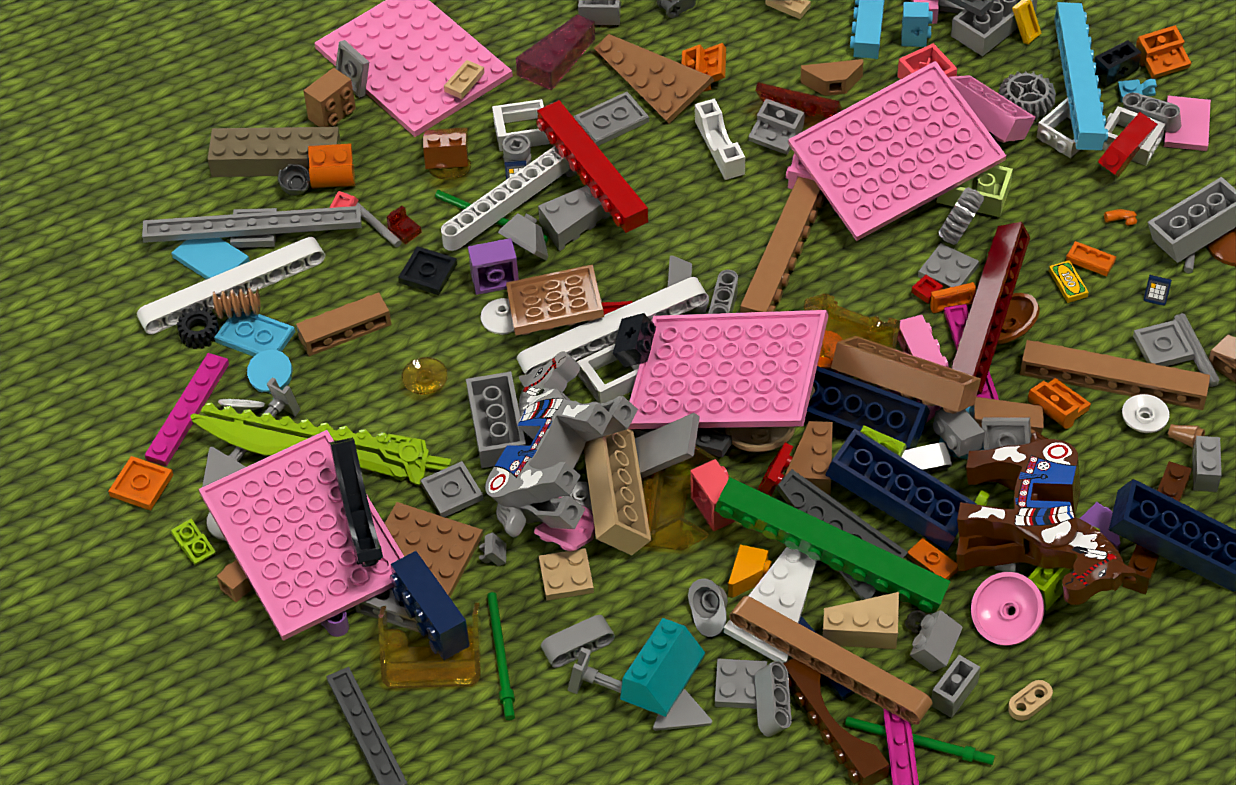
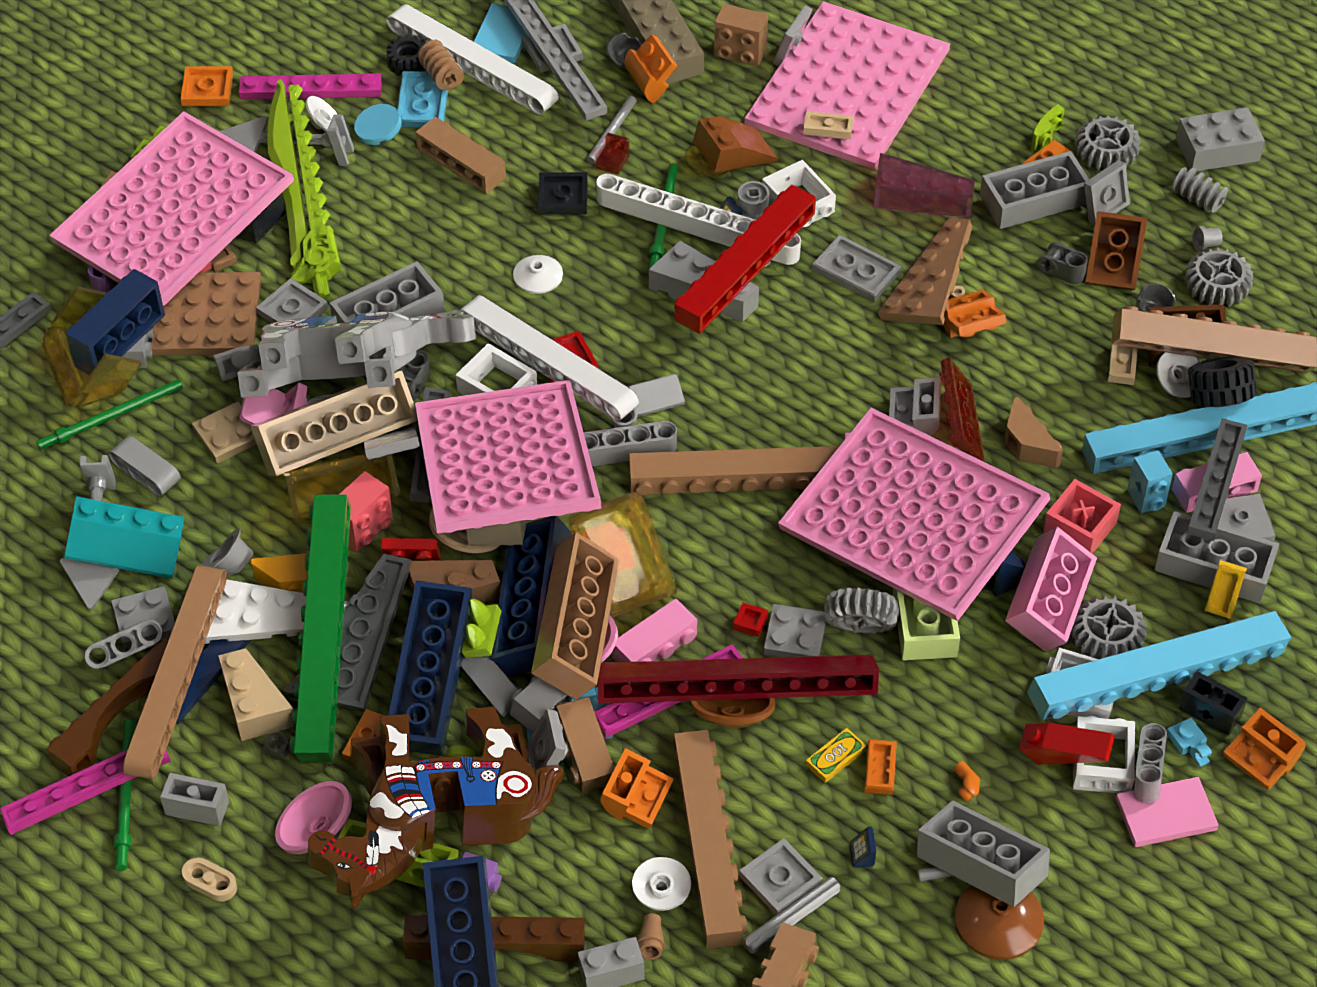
camera: 65 degrees right, 0 degrees up
(343, 200) = (617, 100): coral tile -> none
(355, 502) = (190, 228): black arch -> none
(424, 375) = (423, 237): clear yellow dish -> none
(492, 265) = (583, 235): medium lavender brick -> none
(526, 234) = (632, 246): light grey slope -> none
(554, 300) = (560, 297): medium nougat plate -> none
(634, 340) = (523, 372): black brick -> none
(711, 125) = (888, 348): white arch -> none
(936, 640) = (249, 765): light grey brick -> none
(952, 296) = (745, 642): orange plate -> none

